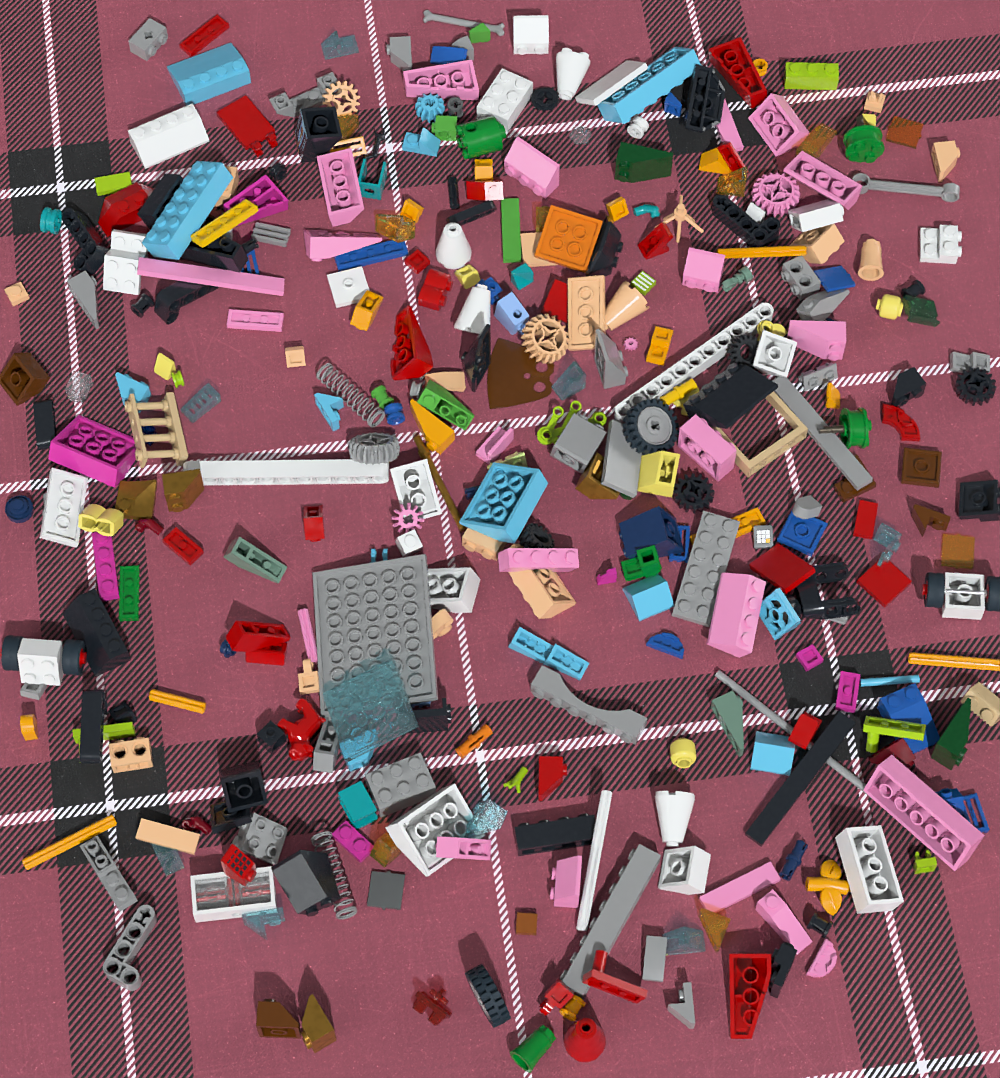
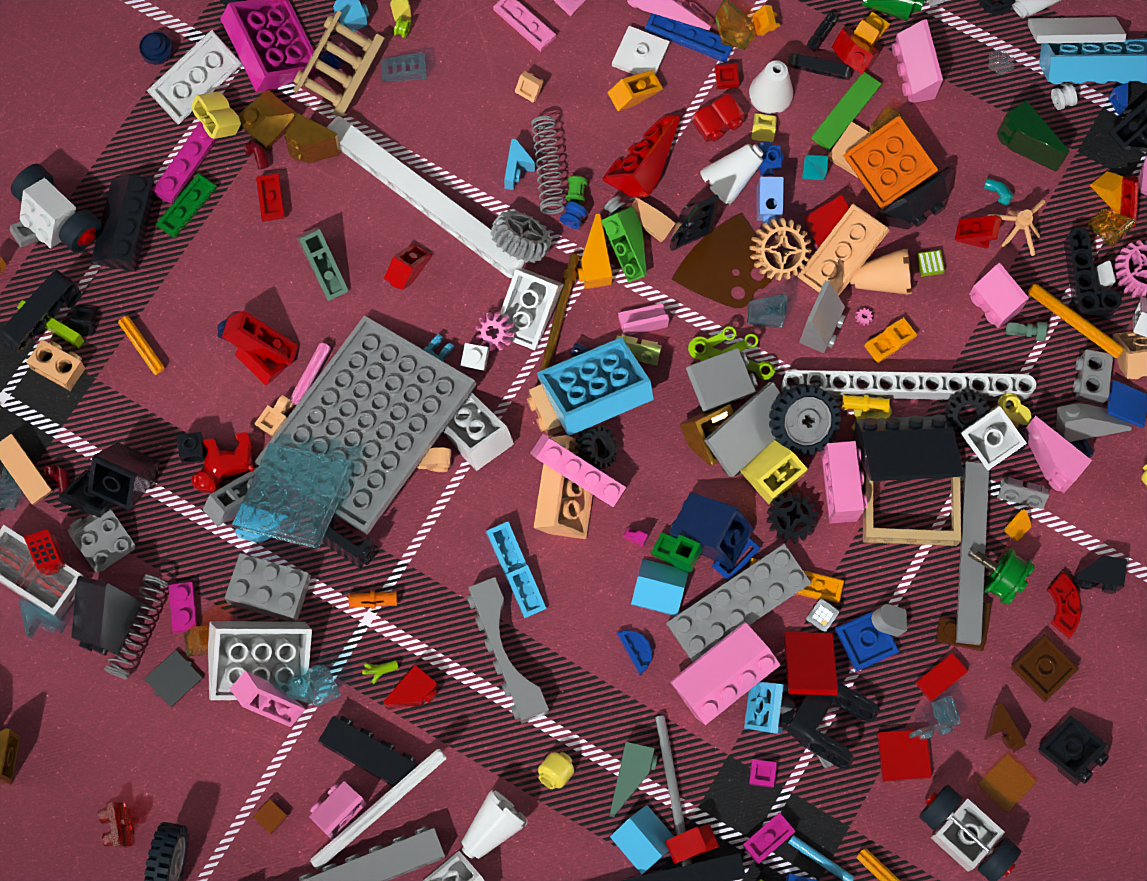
camera: 35 degrees right, 10 degrees up
(358, 805) = (212, 576): teal piece -> none
(617, 208) = (969, 167): light orange tile -> none

